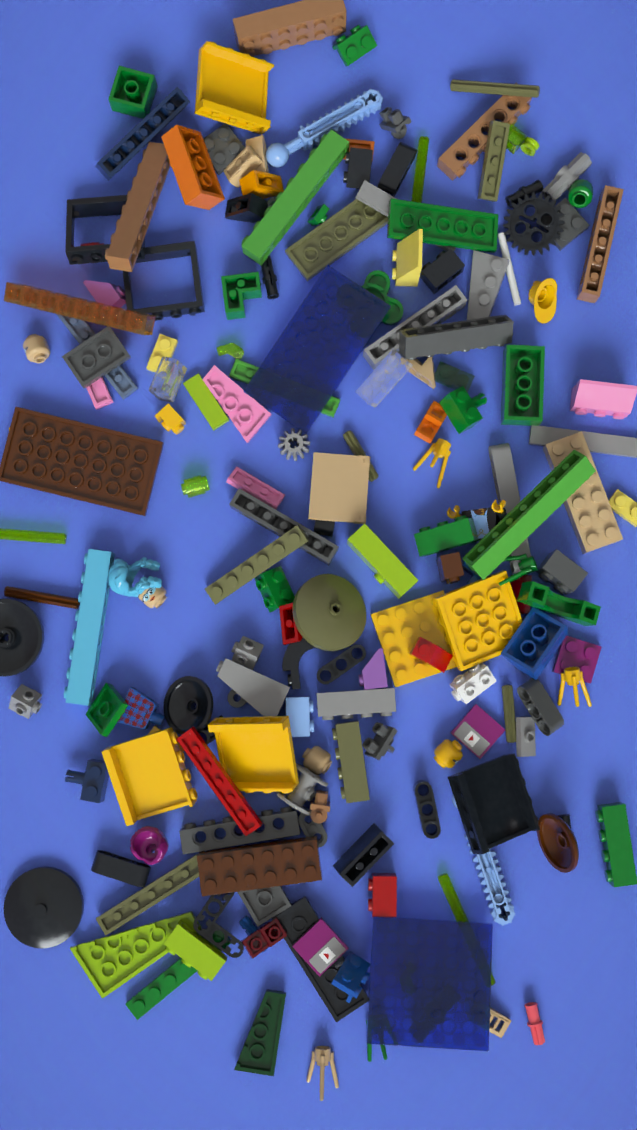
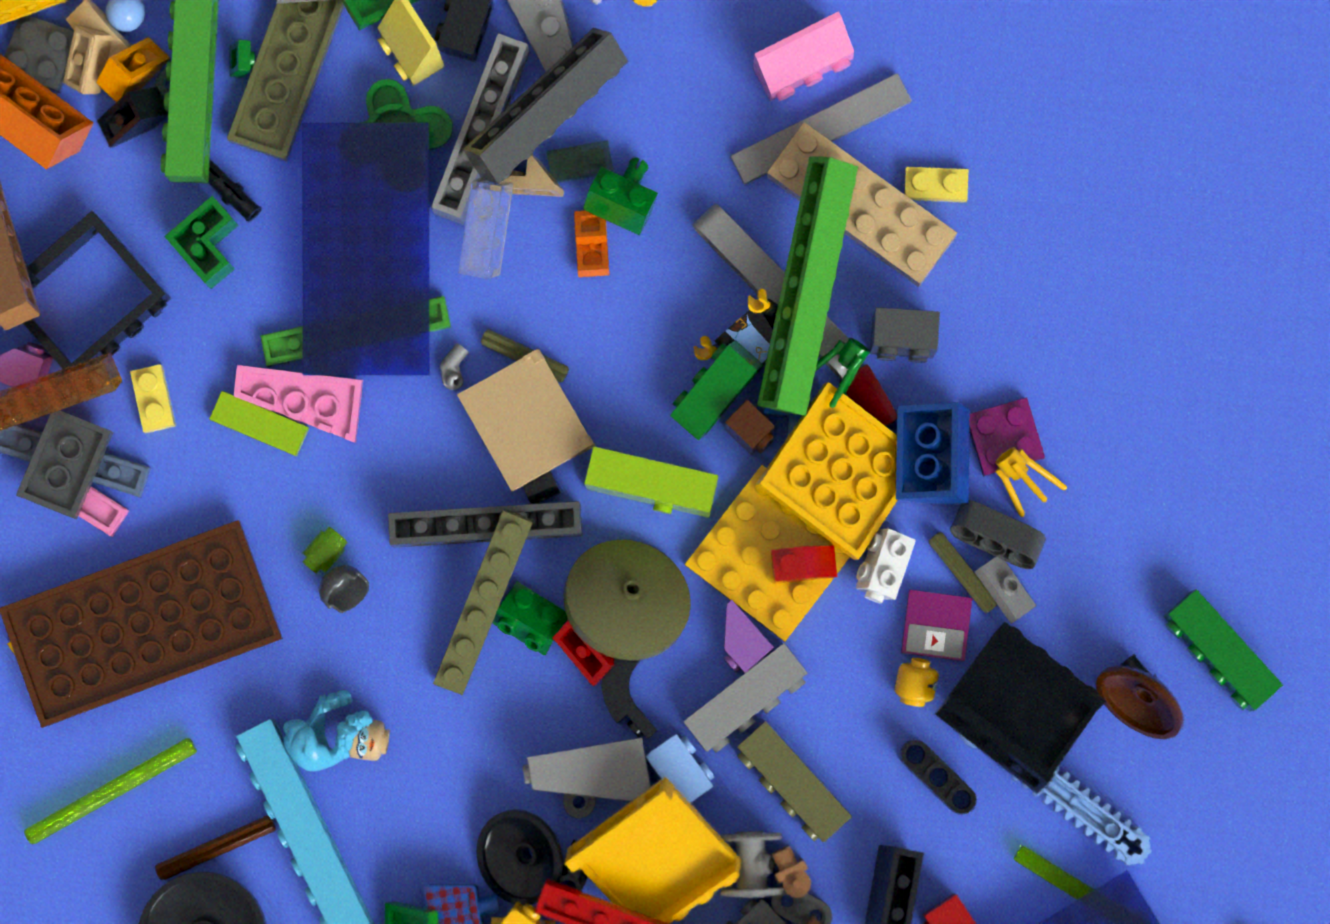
camera: 30 degrees left, 0 degrees up
(167, 379) = (186, 428): clear brick -> none
(170, 419) = (228, 481): yellow brick -> none
(191, 511) = (343, 588): none -> dark grey hair
(231, 349) = (245, 327): clear neon green arm -> none
(247, 652) = (550, 730): light grey brick -> none
(255, 487) = (409, 497): bright pink tile -> none
(286, 446) = (431, 393): light grey gear -> none
(317, 760) = (745, 812): tan head -> none
(319, 437) = (450, 367): none -> light grey arm
(350, 660) = (699, 646): black beam -> none
(381, 743) = (816, 728): dark grey hips -> none
(439, 449) = (628, 273): yellow plant -> none
(522, 385) = (682, 110): green brick -> none
(564, 607) = (908, 385): green arch -> none

